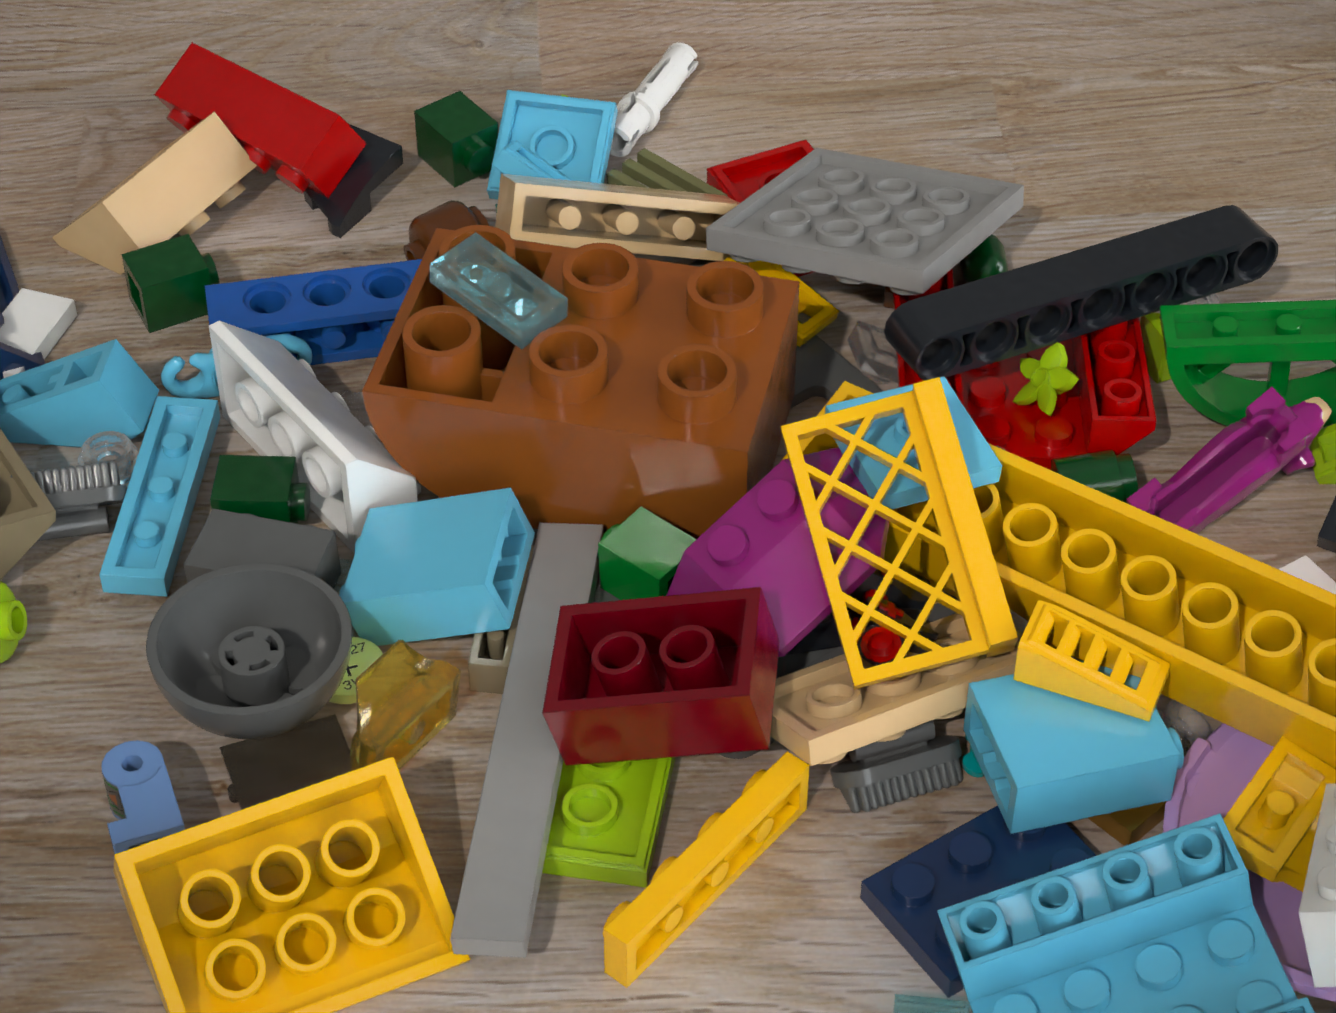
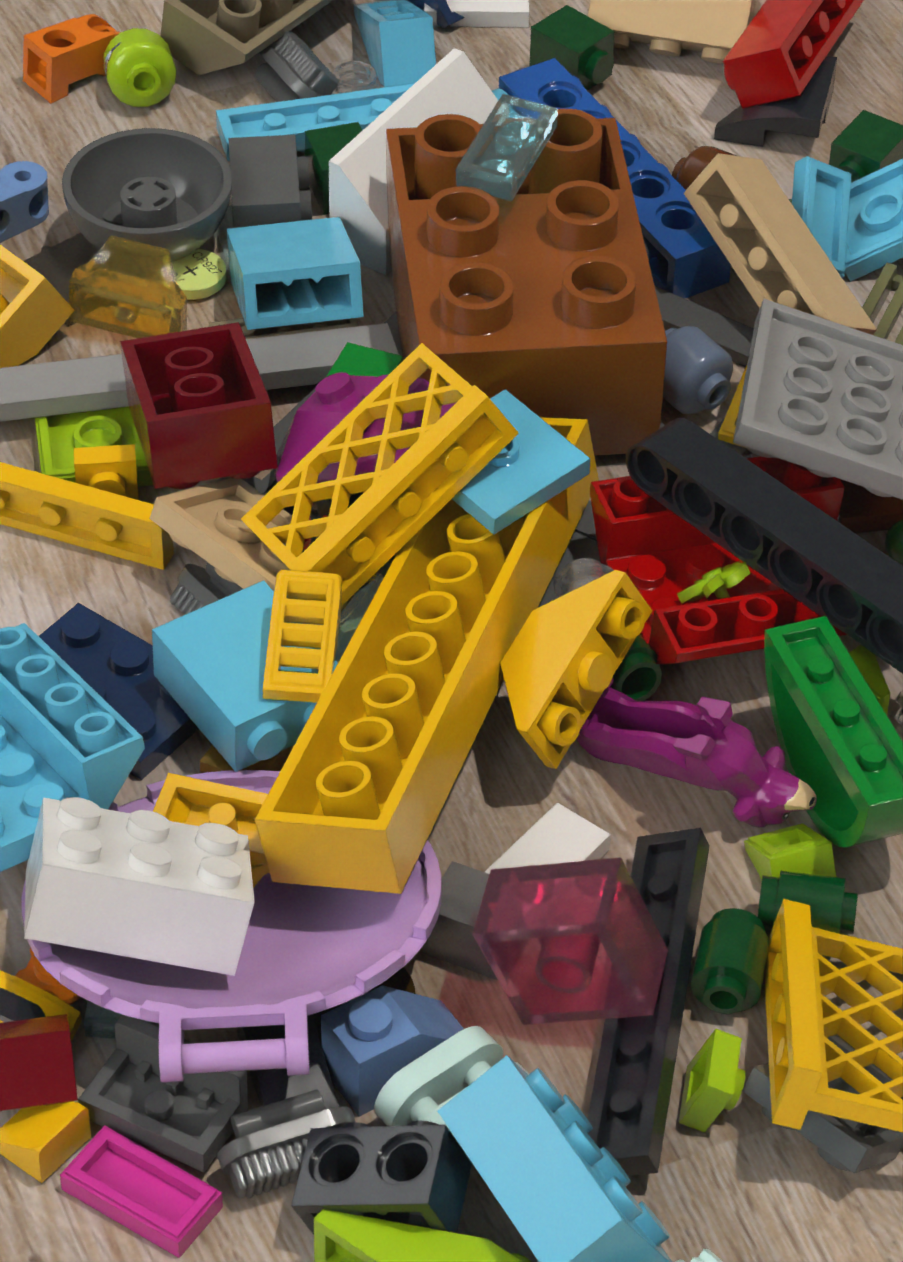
camera: 70 degrees right, 0 degrees up
(678, 809) = (108, 469): none -> yellow plate
(1144, 476) = (568, 660): none -> yellow slope

